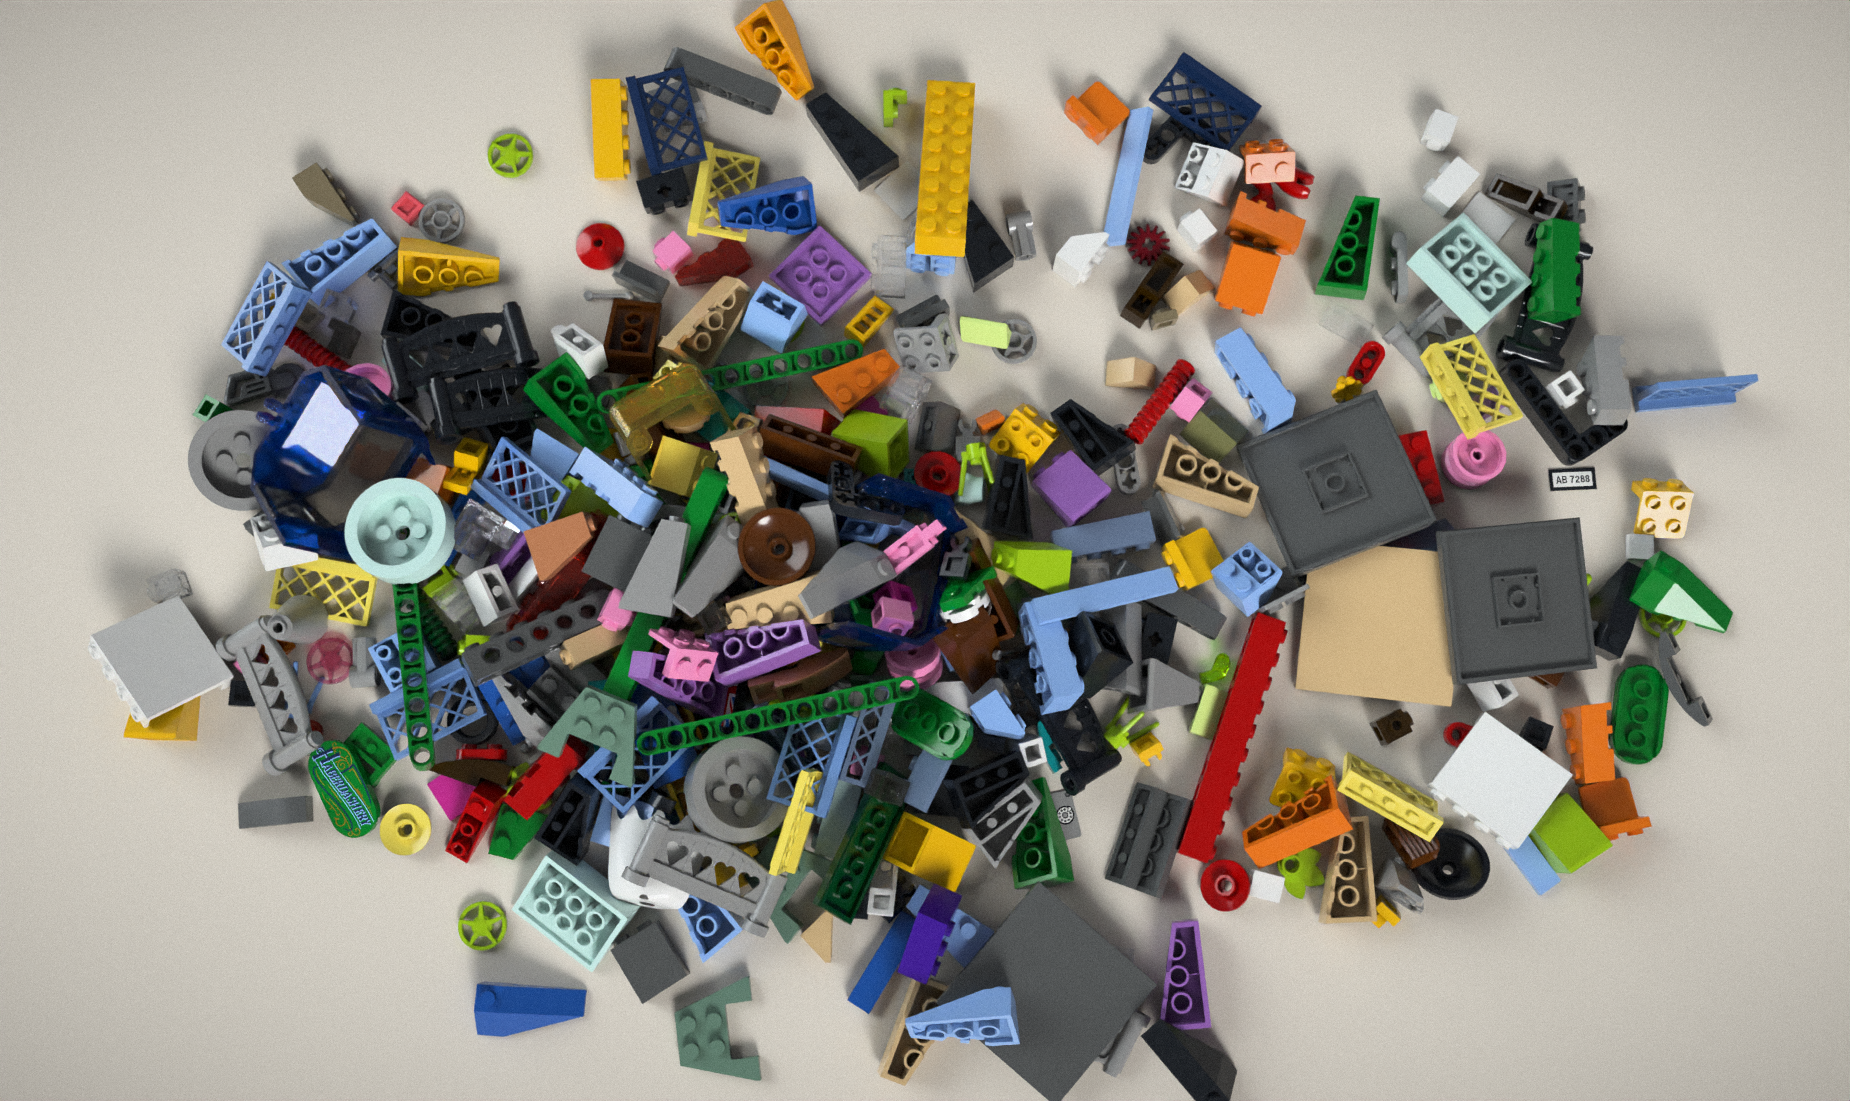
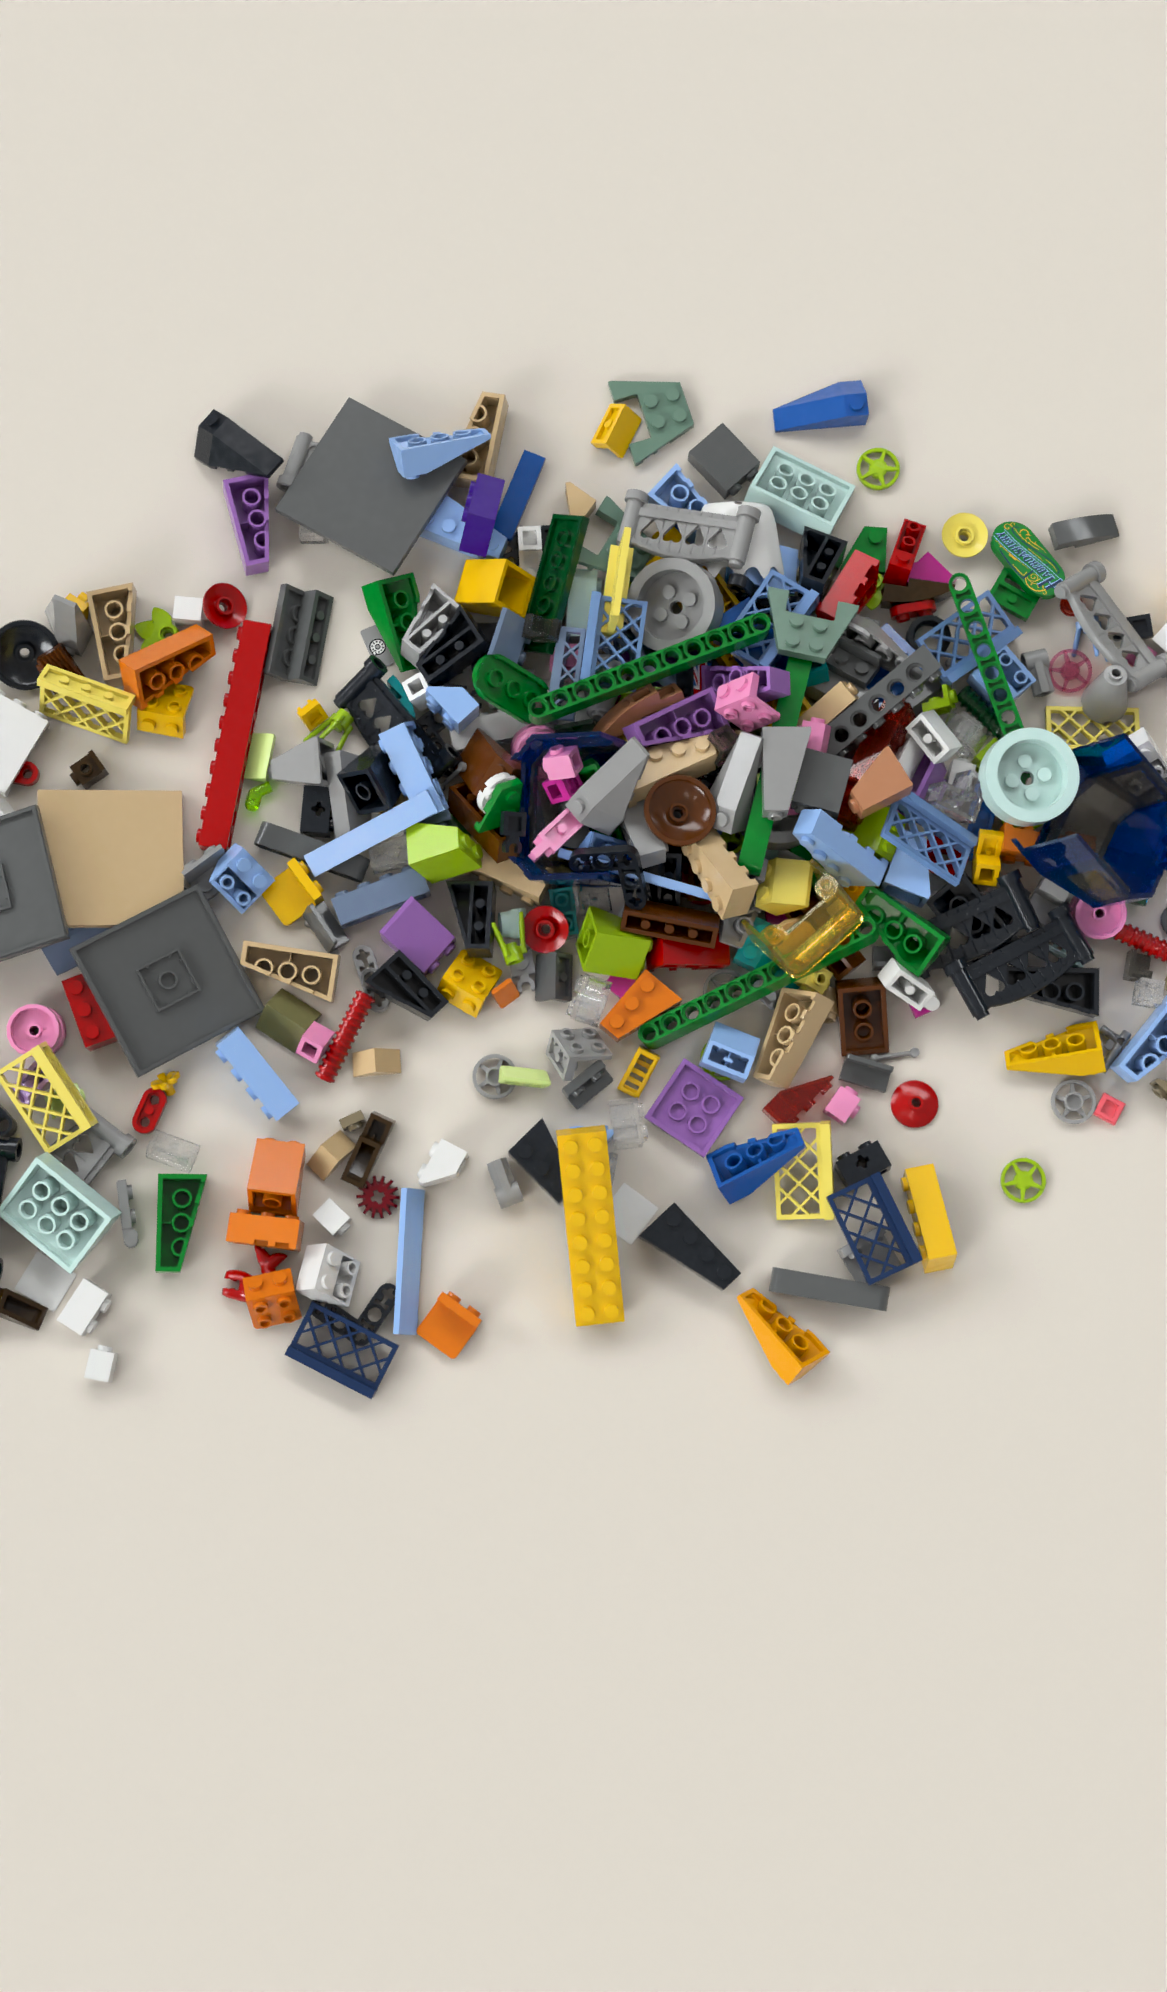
camera: 165 degrees right, 0 degrees up
(762, 1021) = (617, 429): none -> yellow panel
(891, 100) = (656, 1290): lime bracket -> none

